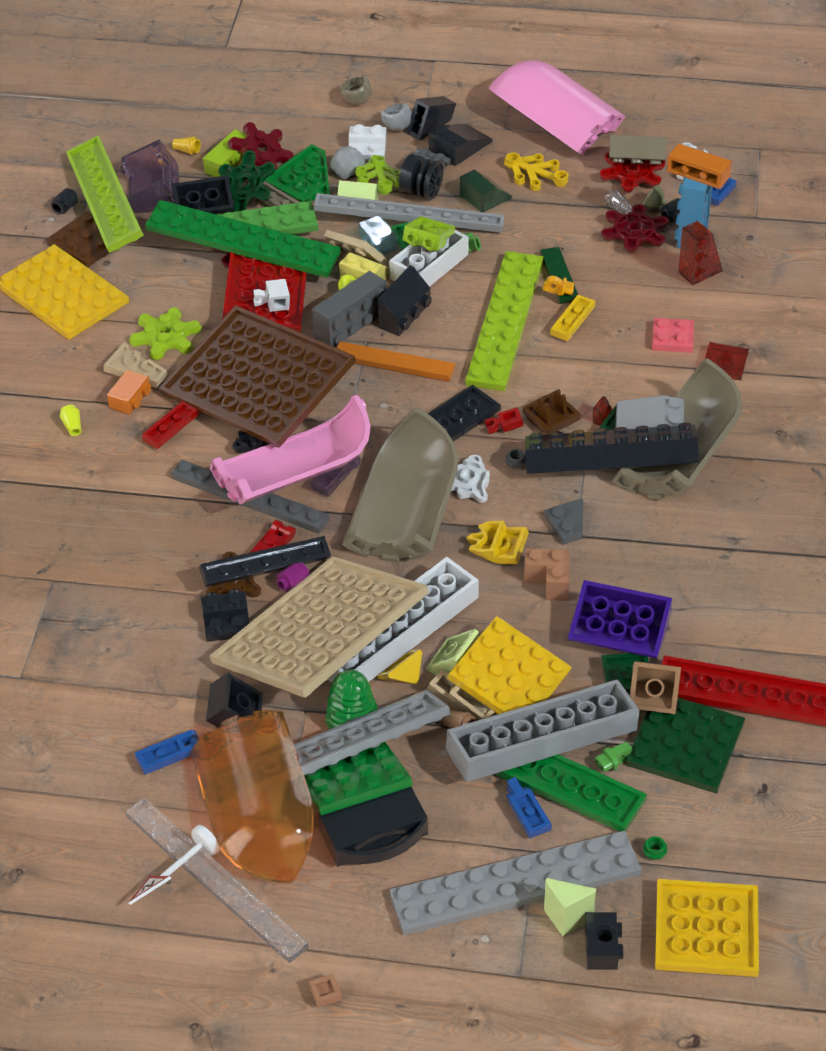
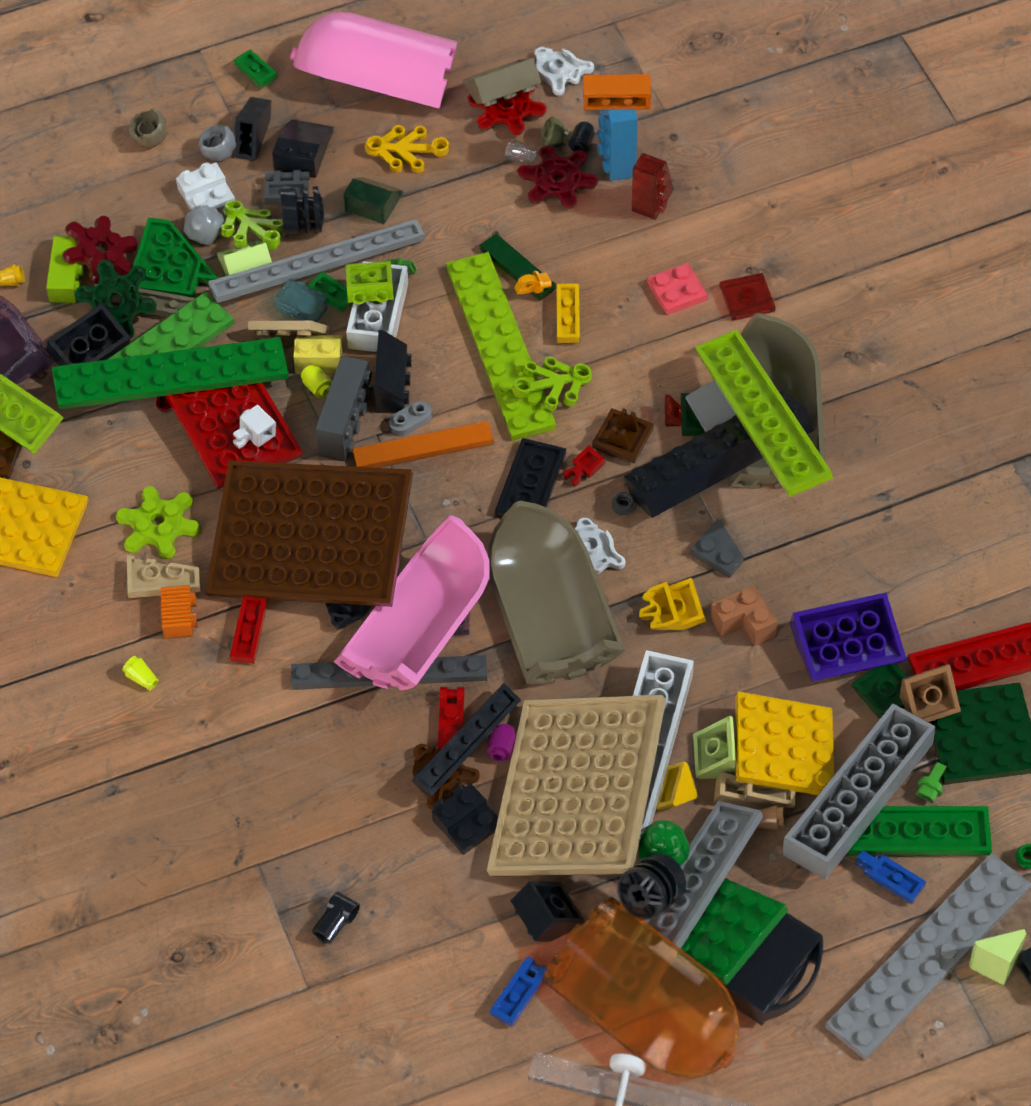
camera: 30 degrees left, 10 degrees up
(81, 634) = (338, 913): none -> black piece
(312, 713) = (651, 886): none -> black wheel
(399, 340) = (411, 418): none -> light grey plate
(463, 83) = (255, 68): none -> green plate
(545, 360) = (579, 375): none -> lime plant
(657, 427) = (764, 413): none -> lime plate

